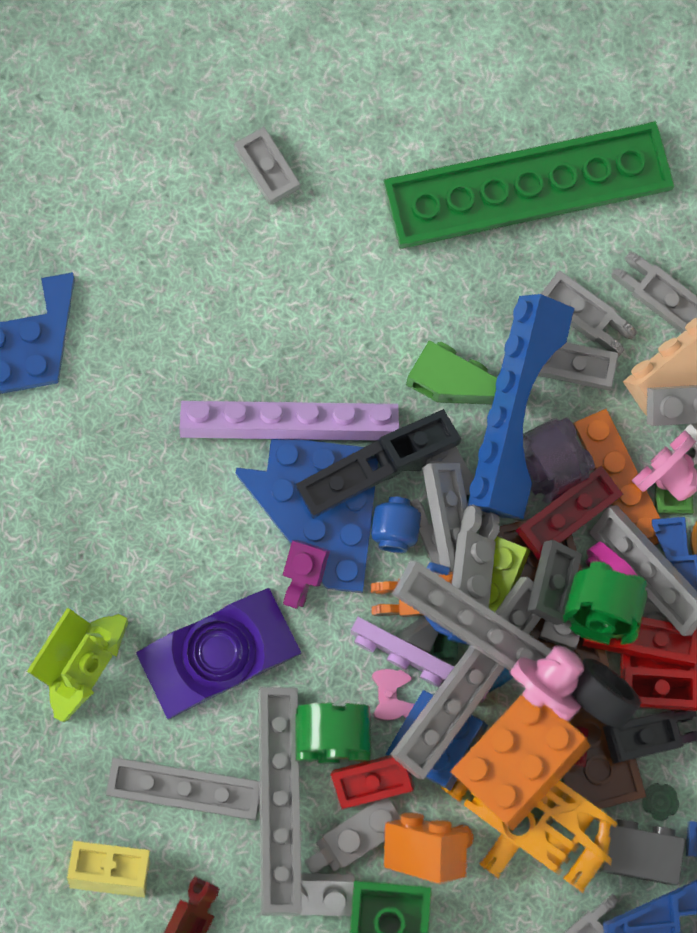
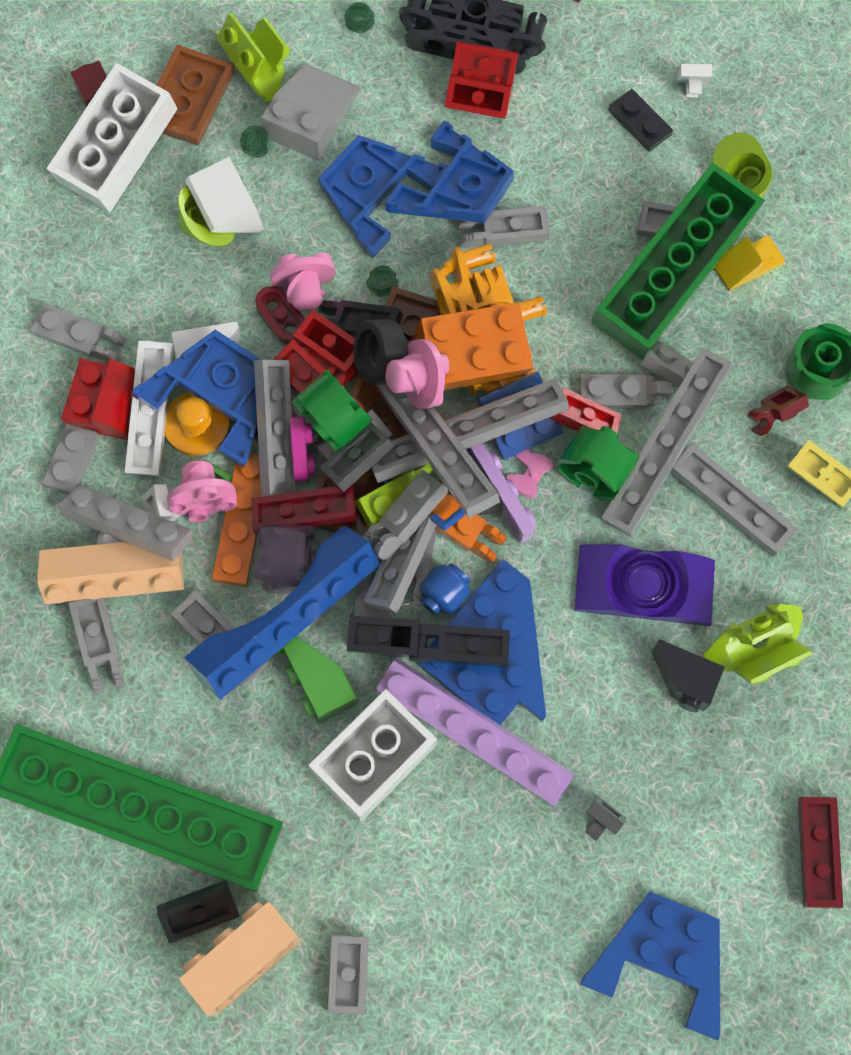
camera: 145 degrees left, 5 degrees down
(129, 585) = (687, 675): none -> black slope
(131, 415) = (604, 817): none -> dark grey tile
(305, 568) = (539, 601): magenta plate -> none
(360, 118) = (238, 958): none -> light nougat brick
(361, 340) = (373, 755): none -> white brick
(419, 138) = (197, 911): none -> black plate
(427, 848) = (579, 338): orange brick -> none
(590, 312) = (171, 669): light grey hinge -> none
(645, 854) = (418, 250): dark grey brick -> none

